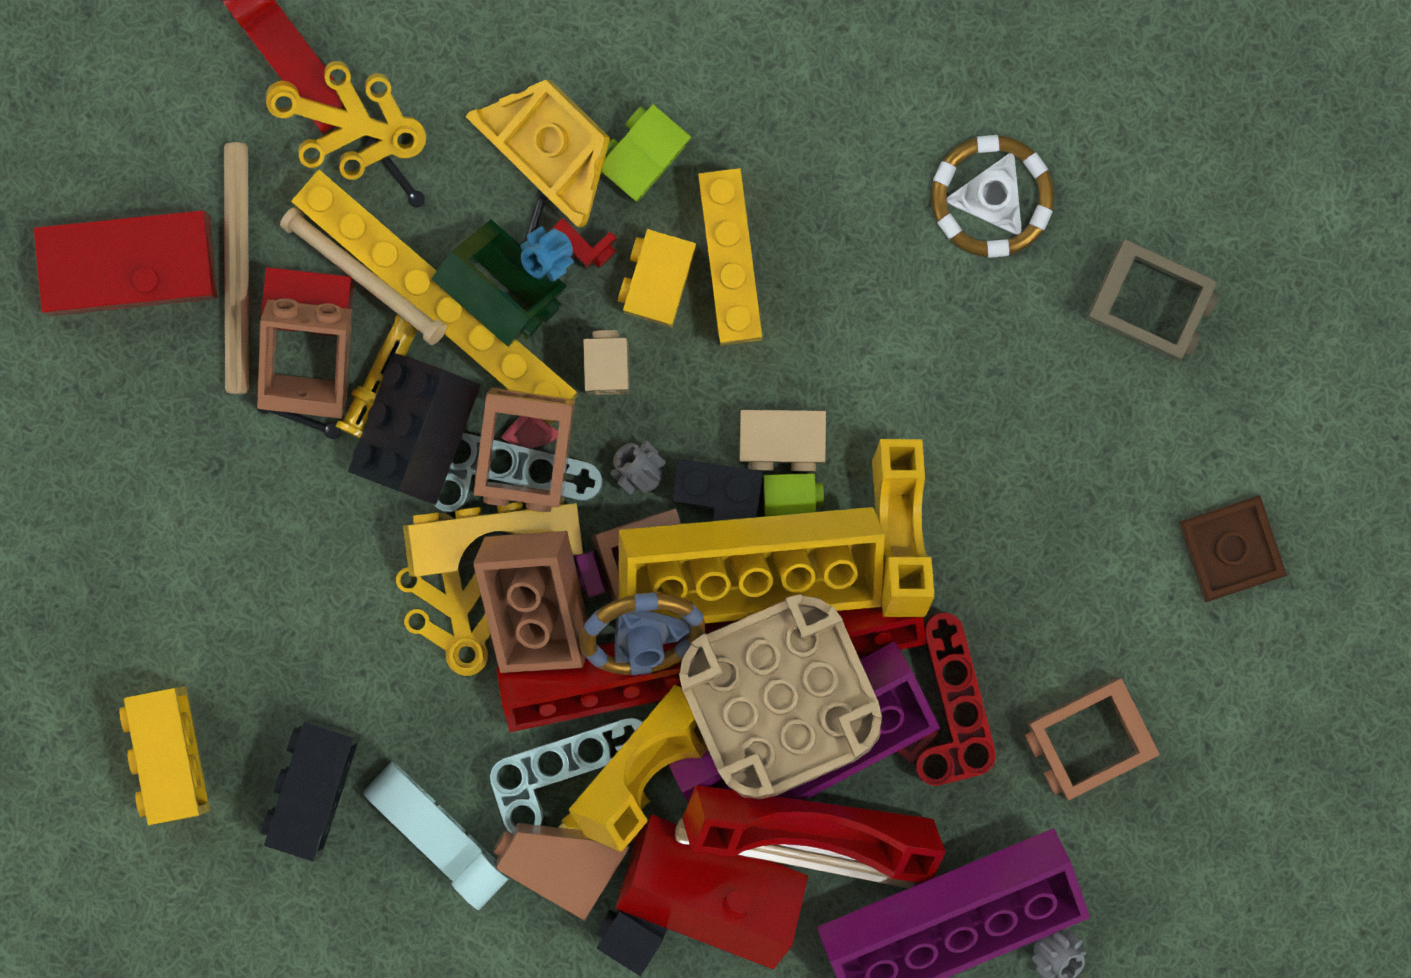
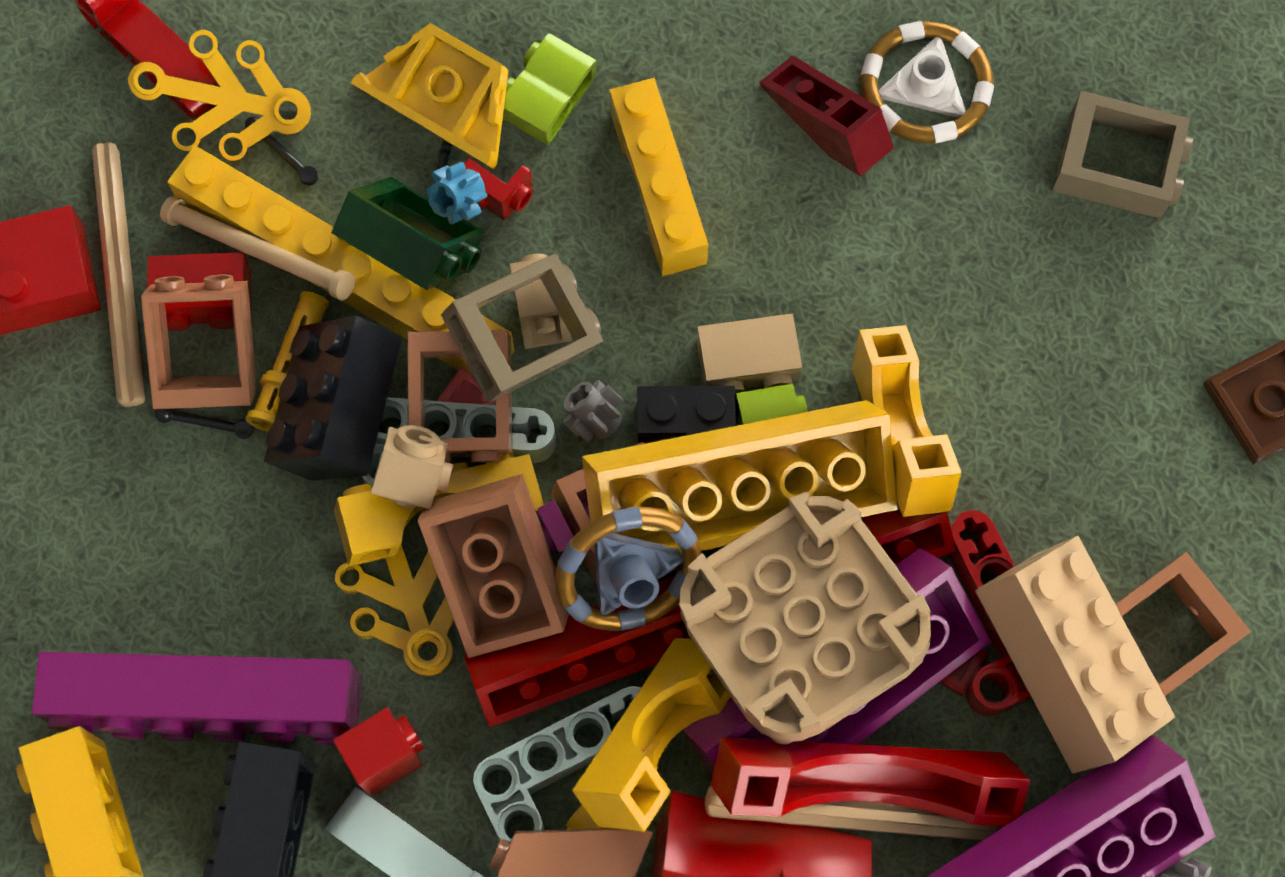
camera: 10 degrees left, 15 degrees down
(271, 669) = (198, 696): none -> magenta brick
(417, 740) = (380, 751): none -> red brick
(474, 513) = (412, 467): none -> tan brick
(545, 424) = (482, 350): none -> dark tan window
(658, 277) = (583, 210): yellow brick -> none
(894, 217) = (830, 114): none -> dark red slope
(1003, 755) = (1075, 655): none -> tan brick

